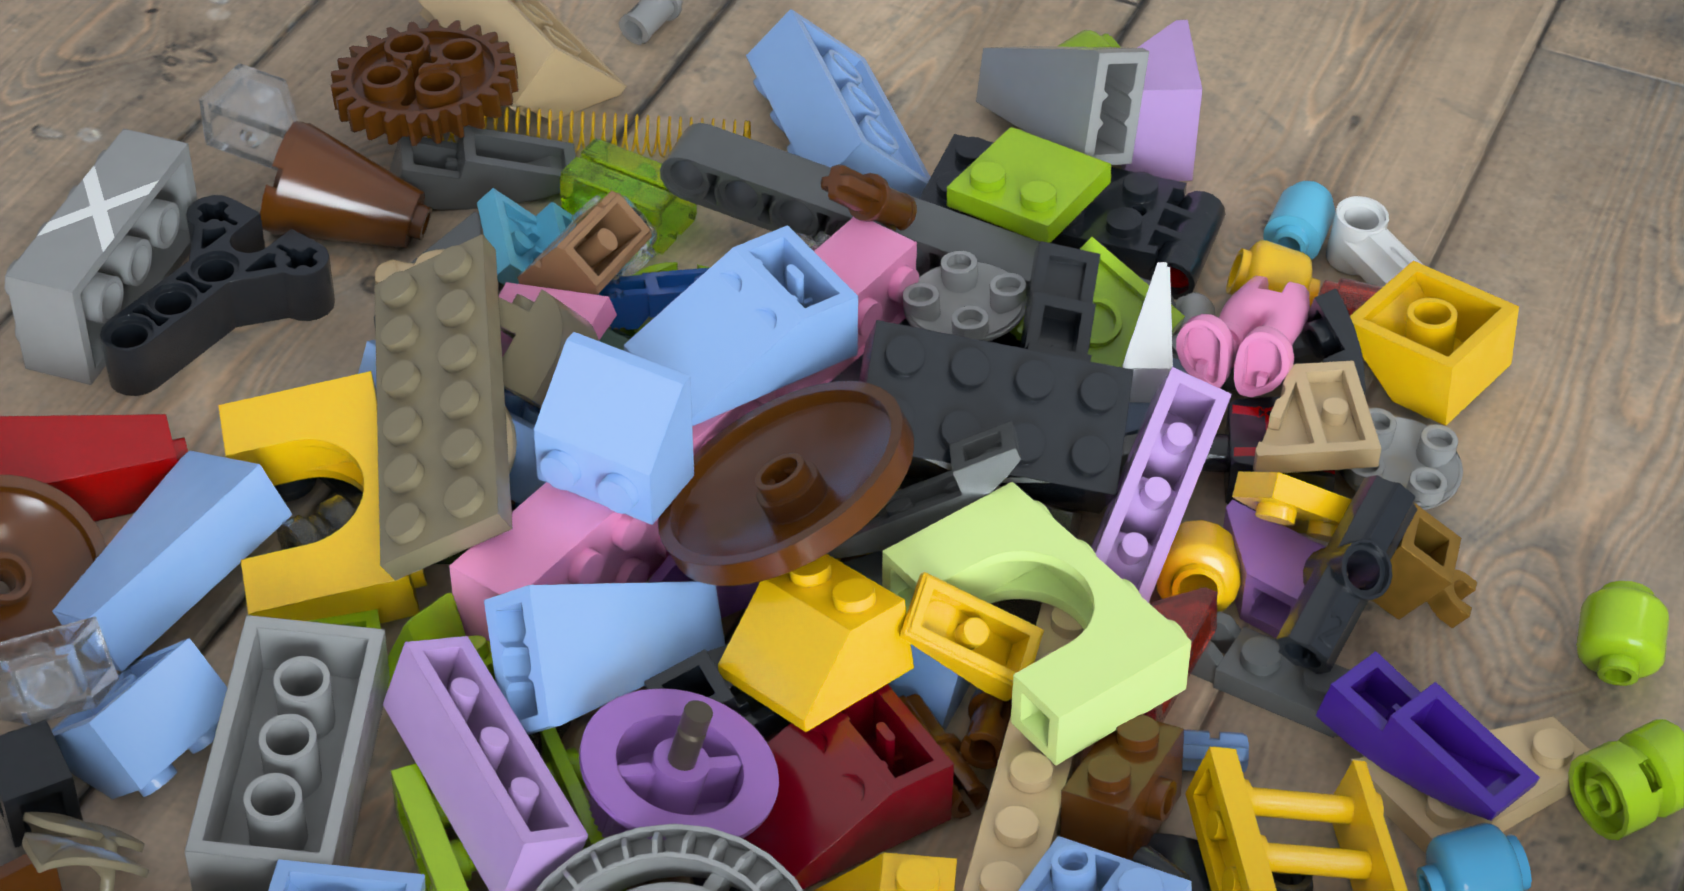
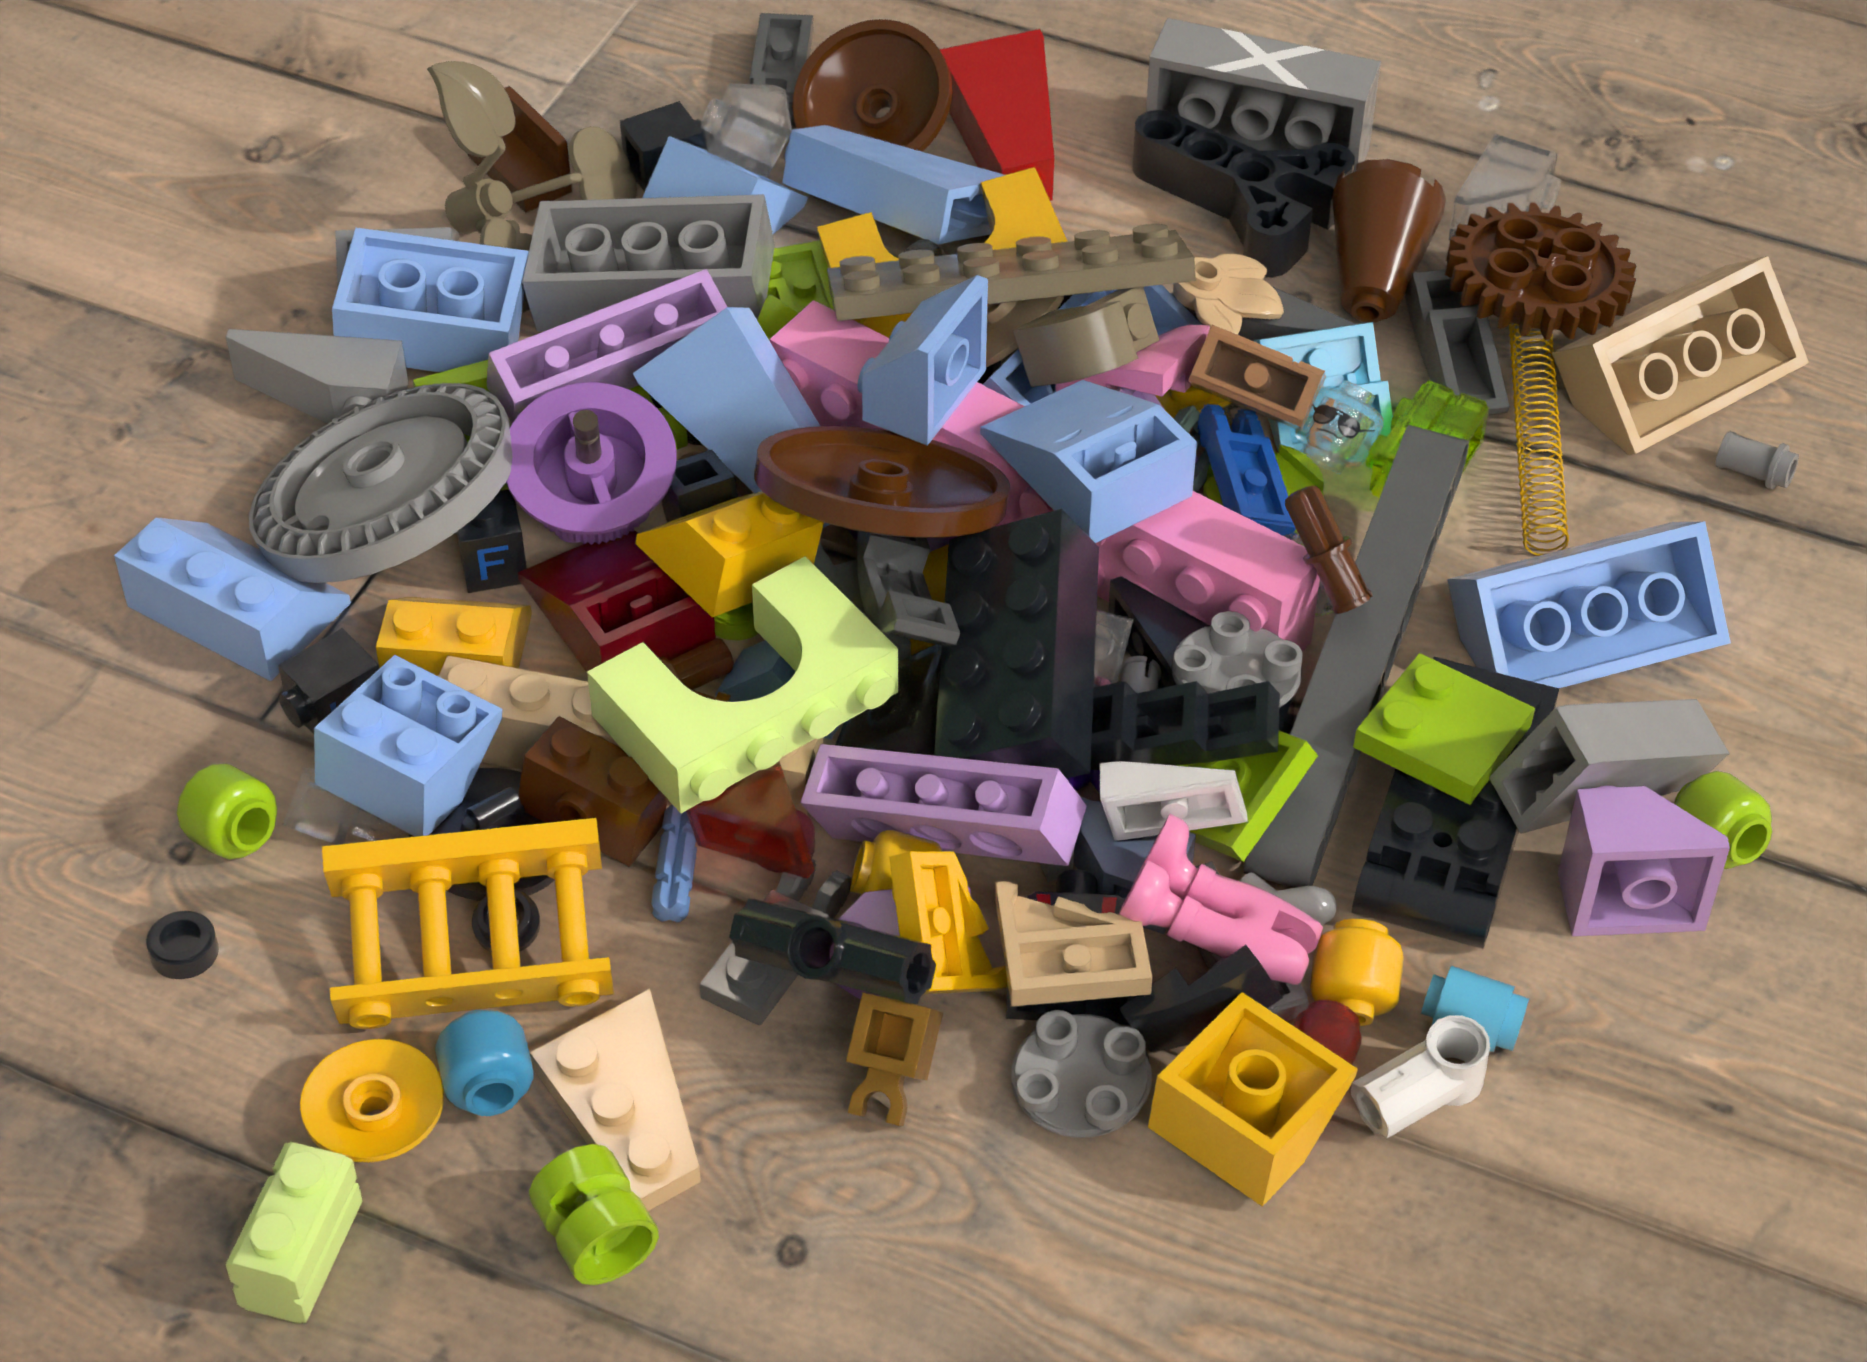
camera: 90 degrees right, 5 degrees up
(970, 635) = (724, 635): yellow slope -> none
(1424, 739) = (635, 1021): dark purple slope -> none
(1623, 631) = (808, 1238): lime head -> none

